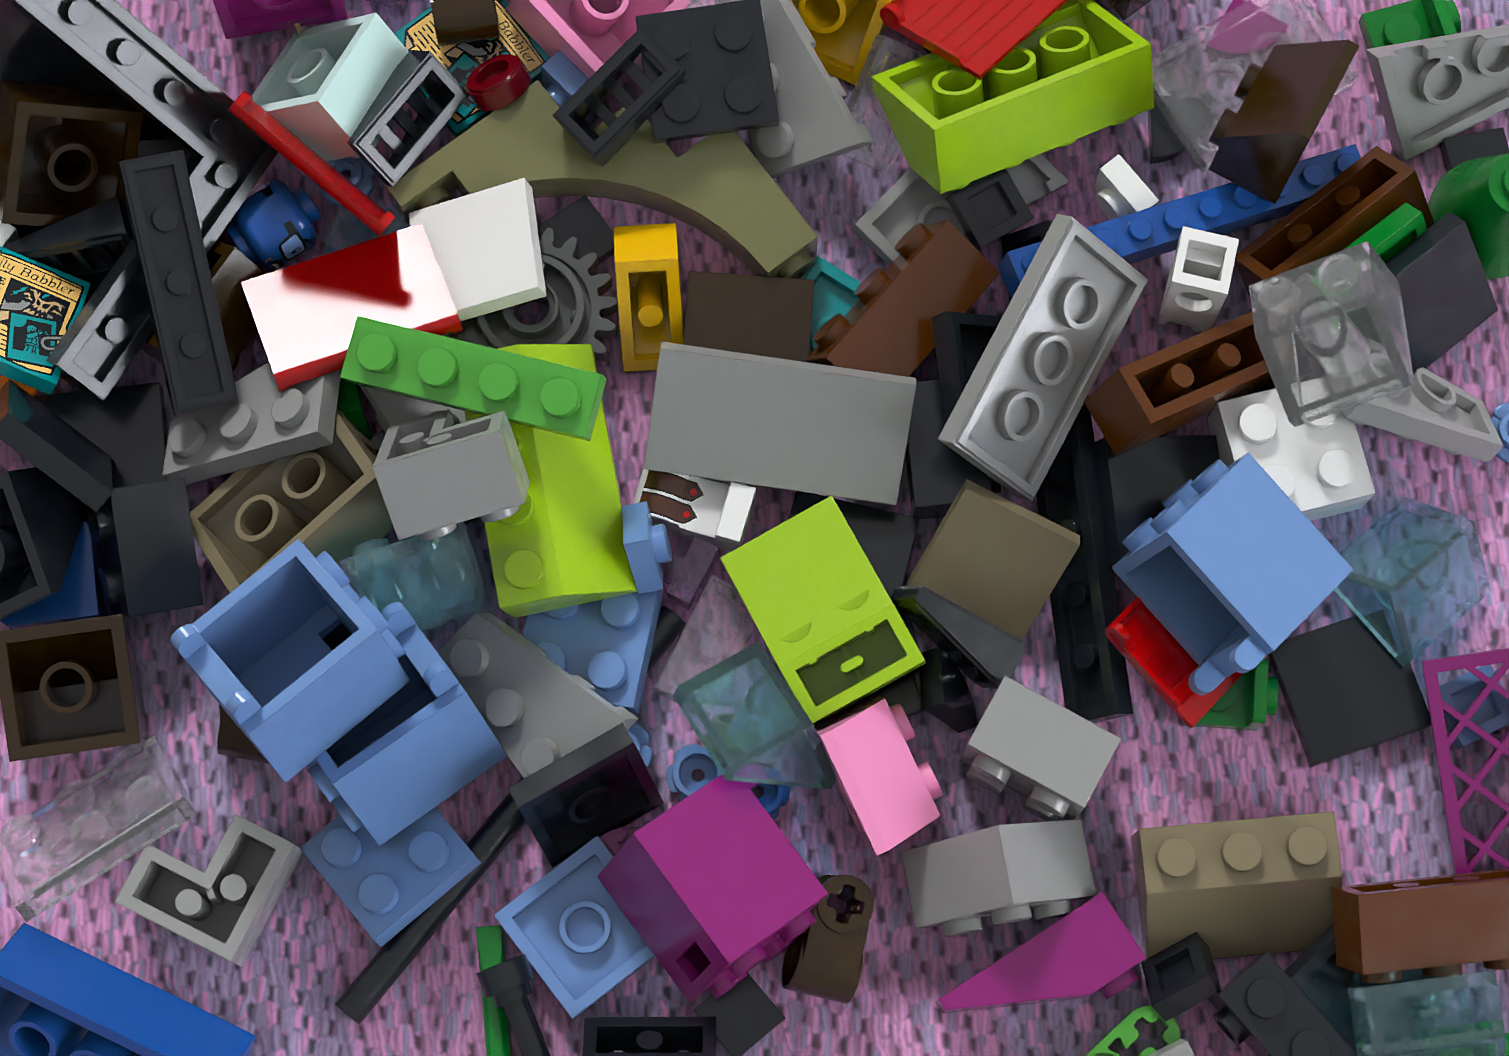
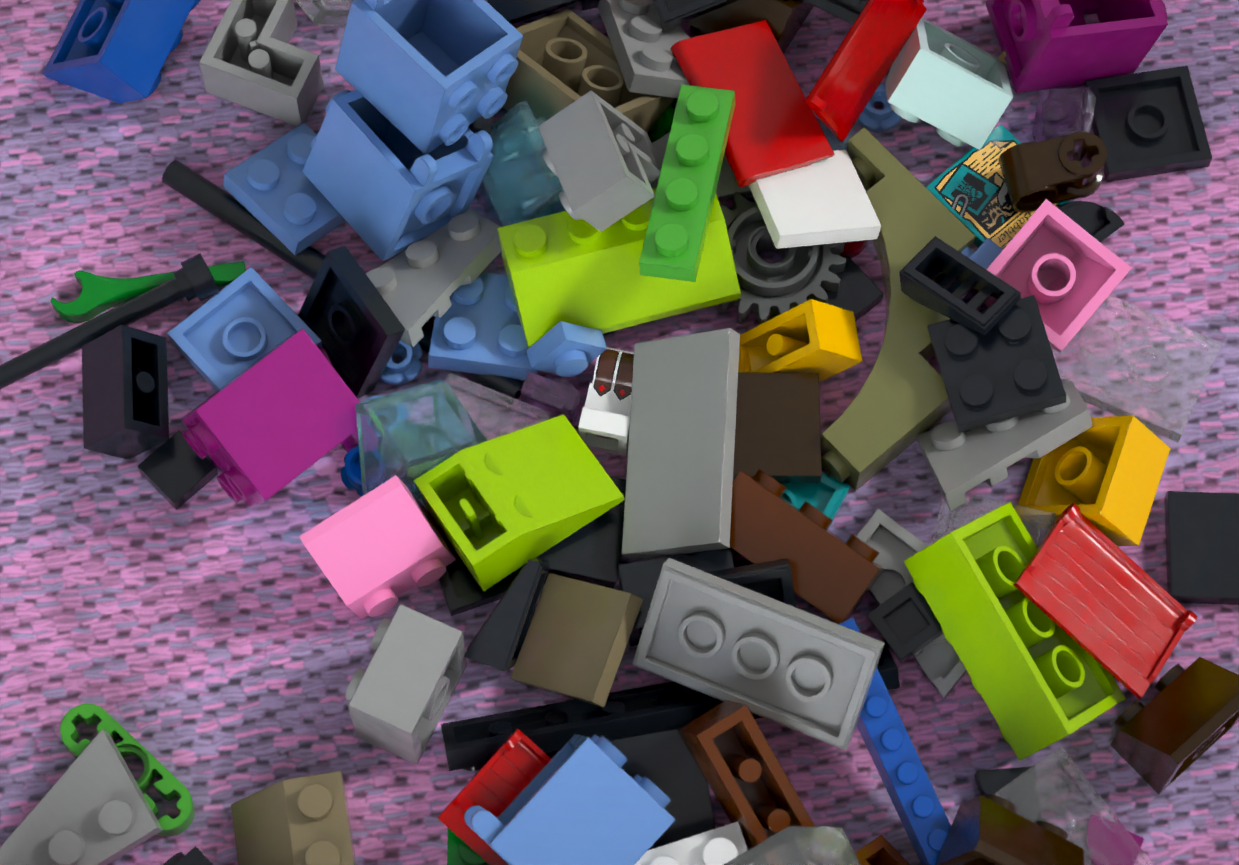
camera: 85 degrees right, 10 degrees down
(274, 225) = (815, 44): blue head -> none
(444, 99) = (932, 159): black slope -> none
(497, 82) = (970, 207): dark red tile -> none
(829, 954) = (233, 529): dark brown piece -> none
(946, 691) = (466, 610): black tile -> none
(999, 875) = (296, 654): light grey brick -> none
(1063, 962) = (228, 728): magenta slope -> none
(1121, 190) = (937, 740): white plate -> none
(1180, 976) = (216, 824): black tile -> none
(1198, 279) = (854, 797): white leg -> none

